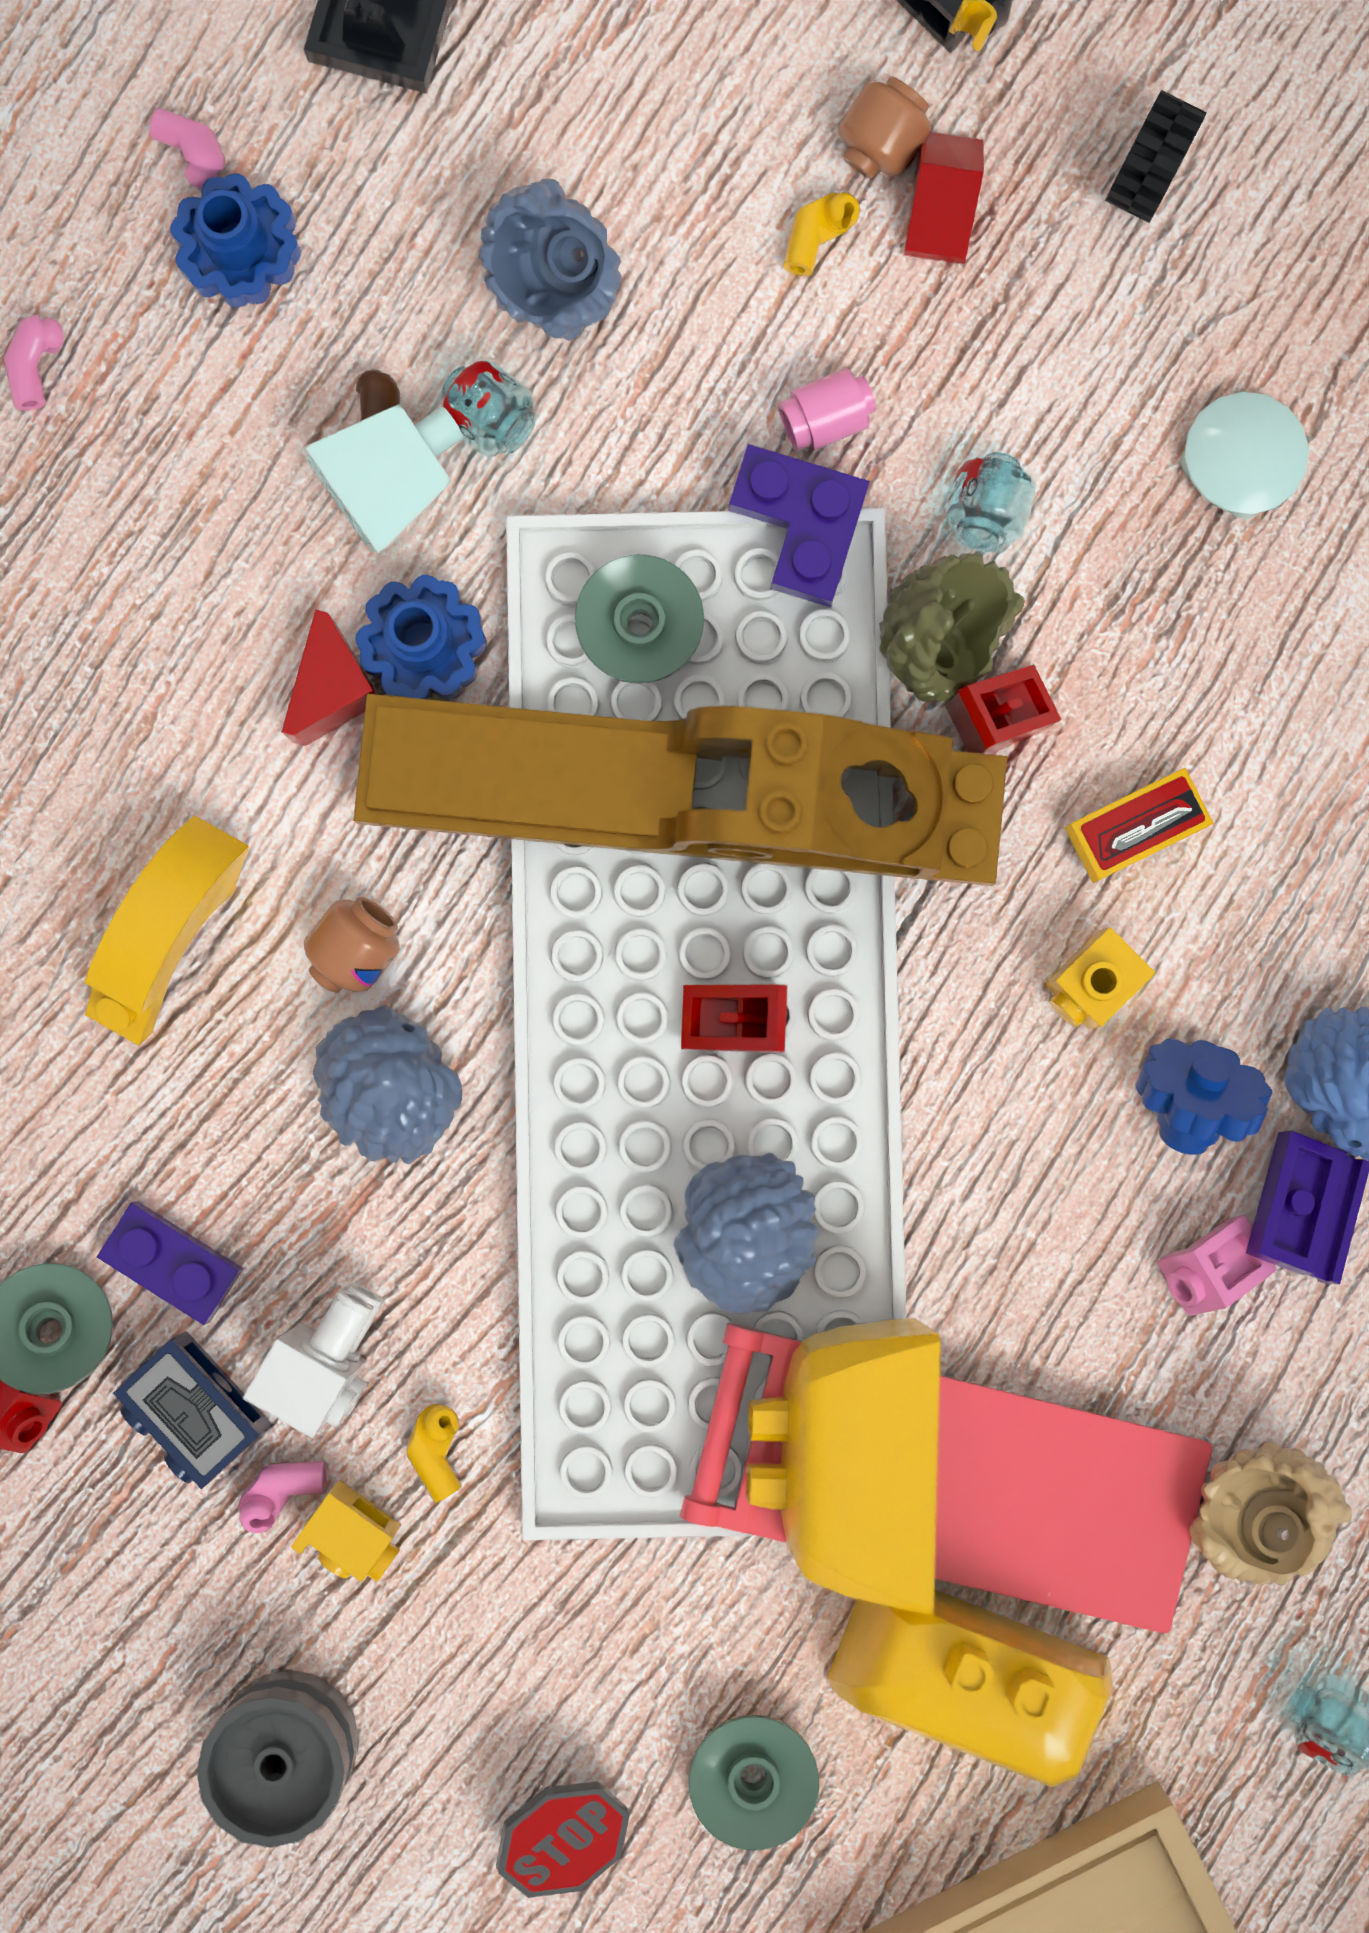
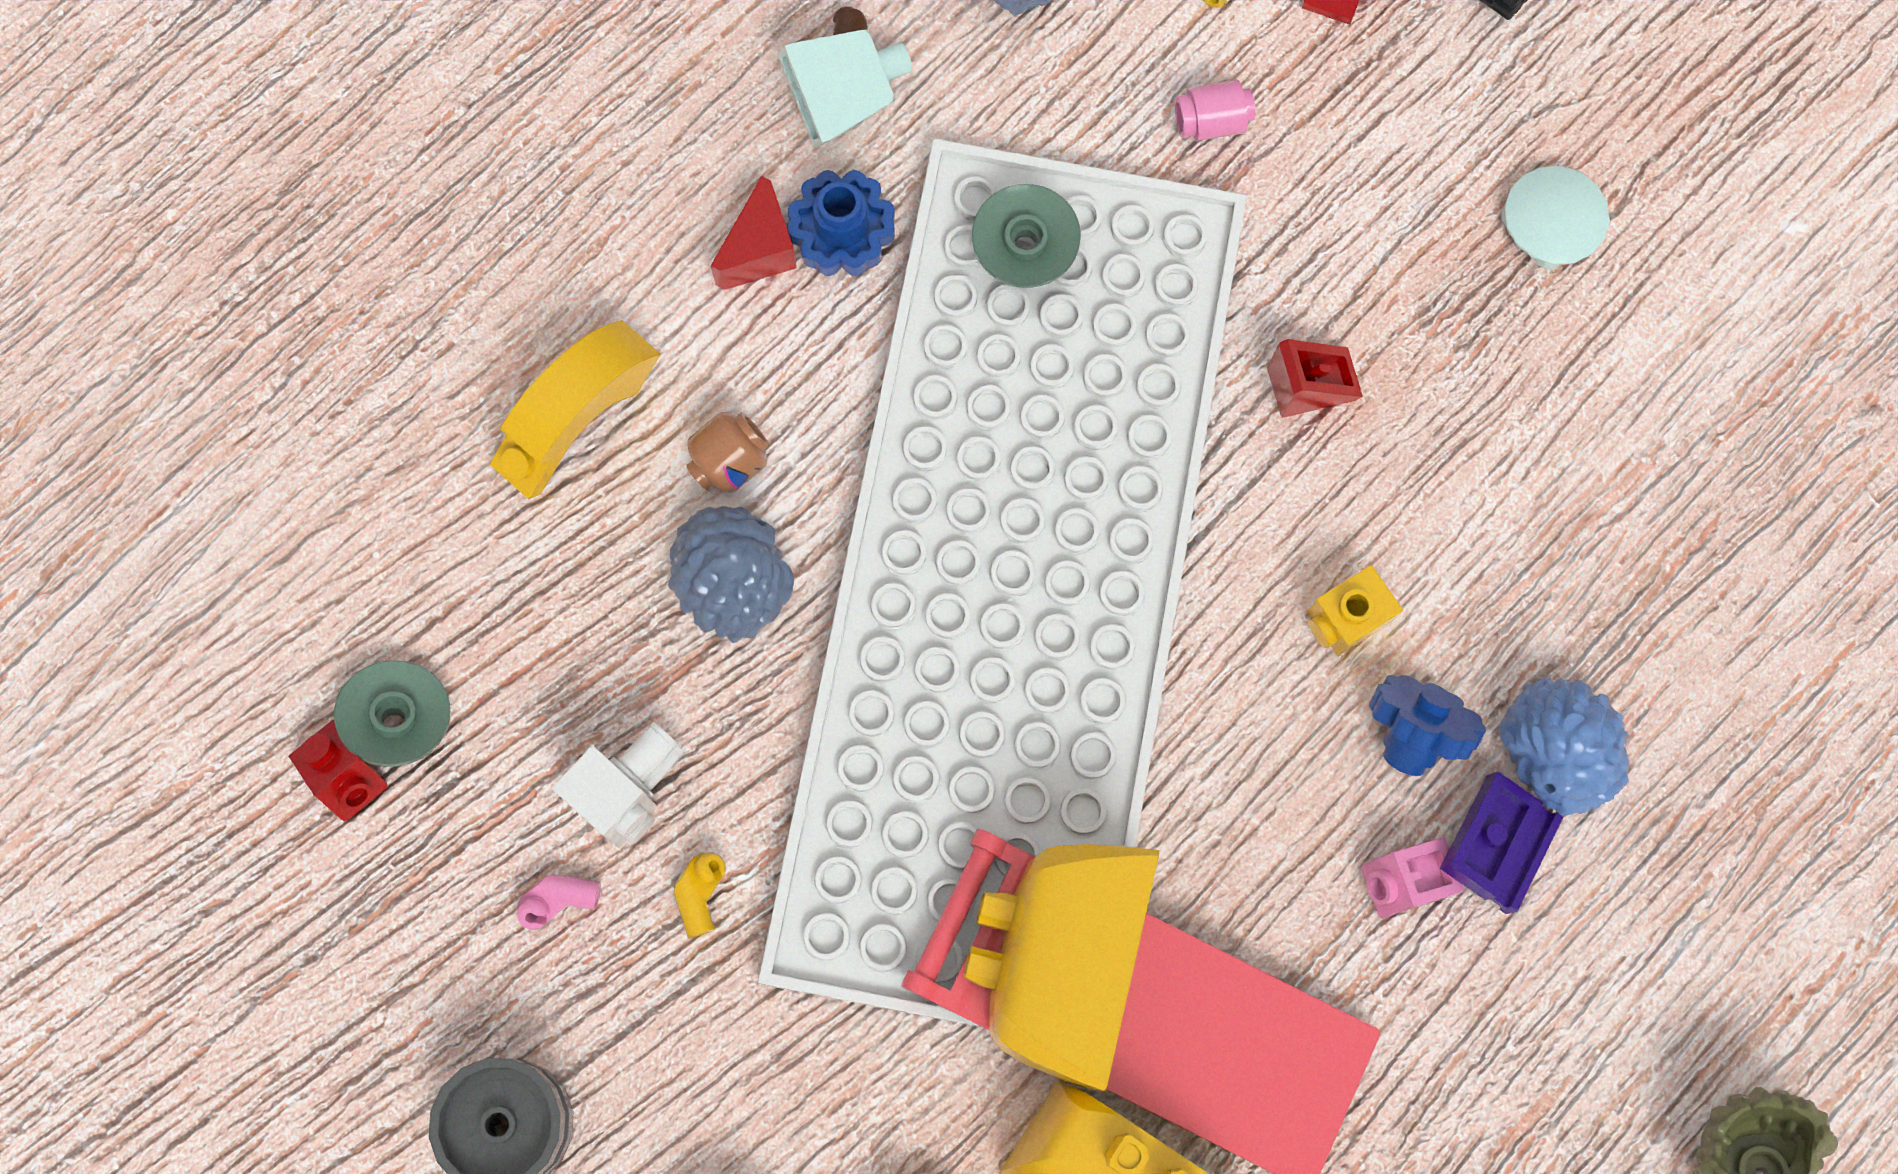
camera: 10 degrees right, 10 degrees down
(170, 1262) = (509, 685): dark purple plate -> none
(190, 1410) = (497, 810): brick -> none
(350, 1535) = (608, 947): yellow brick -> none
(489, 407) = (939, 53): clear light blue head -> none
(635, 779) = (996, 366): pearl gold piece -> none
(734, 1017) = (1038, 572): red slope -> none
(747, 1232) = (1010, 751): sand blue hair -> none
(816, 508) = (1189, 182): dark purple plate -> none
(947, 624) = (1281, 291): olive hair -> none
(990, 502) = (1335, 208): clear light blue head -> none
(1138, 825) = (1412, 493): slope -> none
(1259, 1499) = (1417, 1086): tan hair -> none

